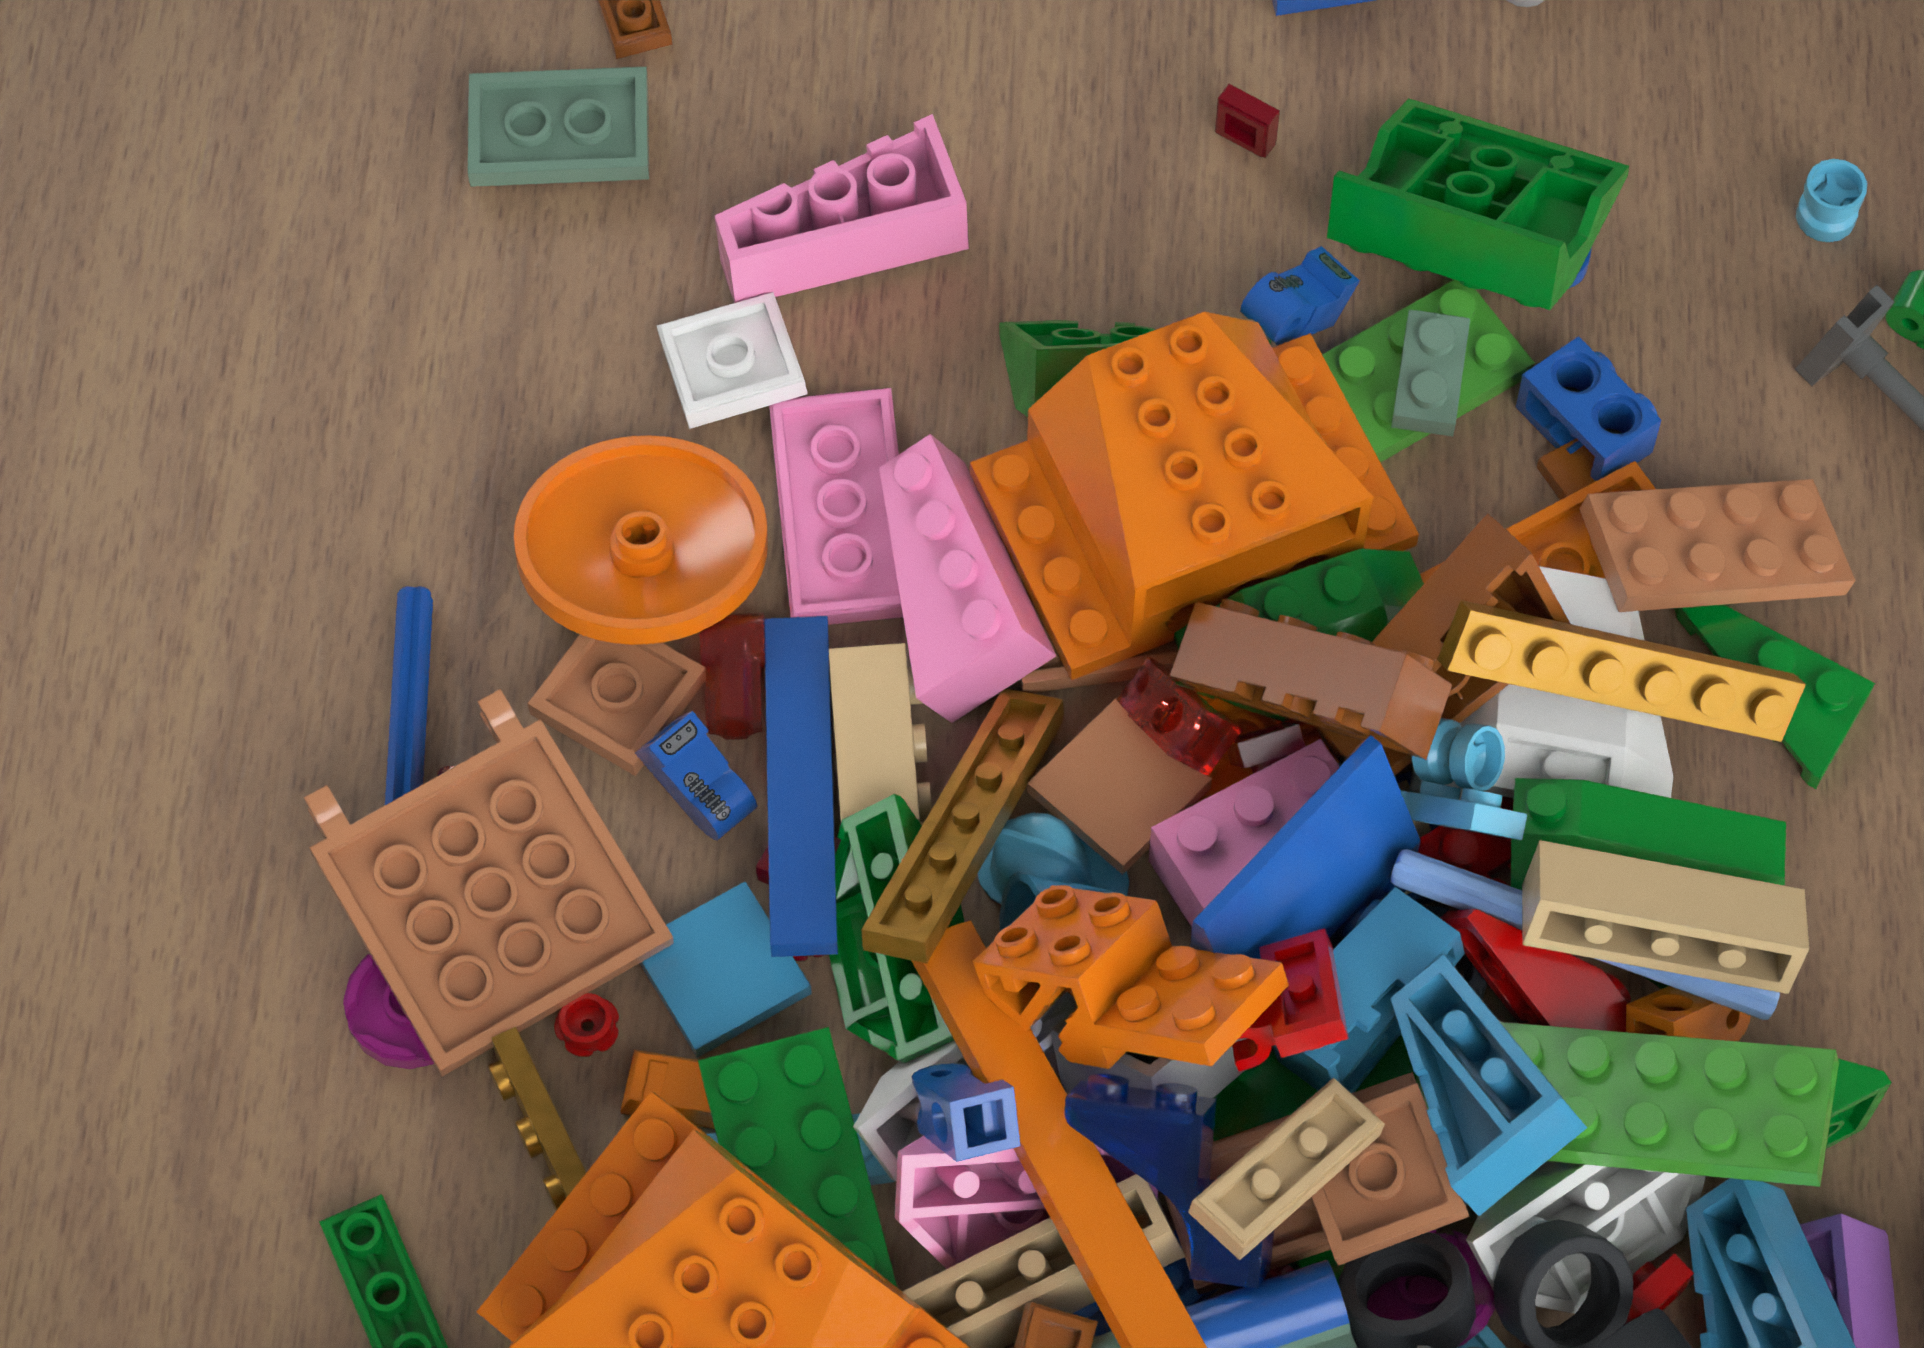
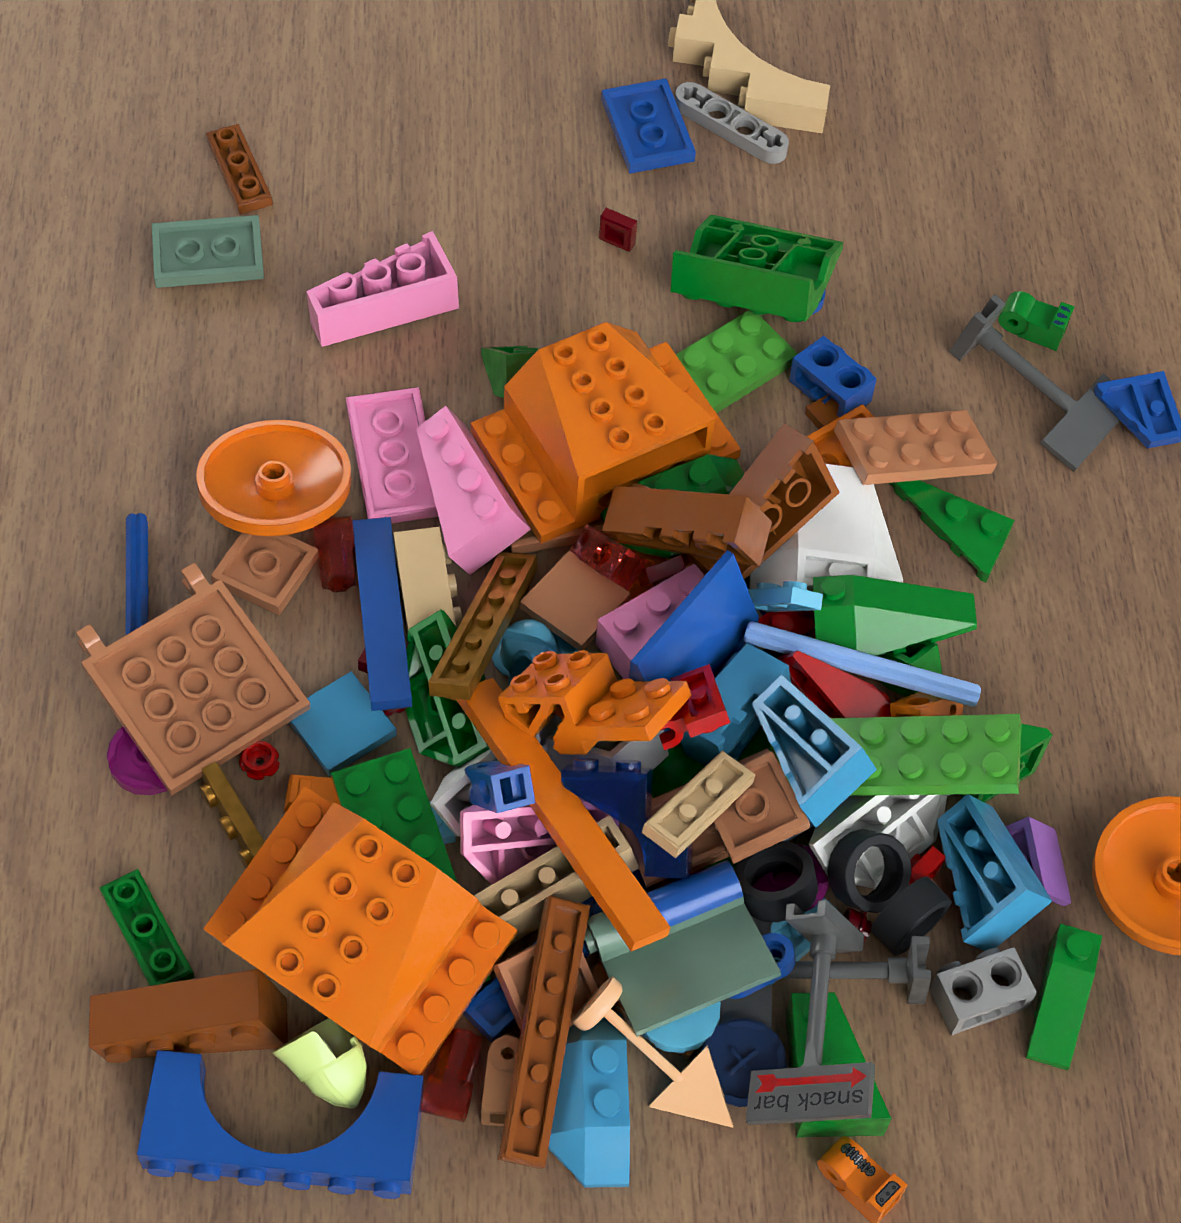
camera: 10 degrees left, 5 degrees down
(697, 776) = (318, 611): blue leg -> none
(731, 360) = (321, 376): white plate -> none
(1301, 298) = (661, 322): blue leg -> none
(1431, 373) = (739, 360): sand green plate -> none
(1466, 755) = (780, 565): medium azure wheel -> none
(1620, 671) = (868, 513): plate -> none
(1664, 917) = (909, 647): tan brick -> none
(1831, 200) = (960, 257): medium azure wheel -> none

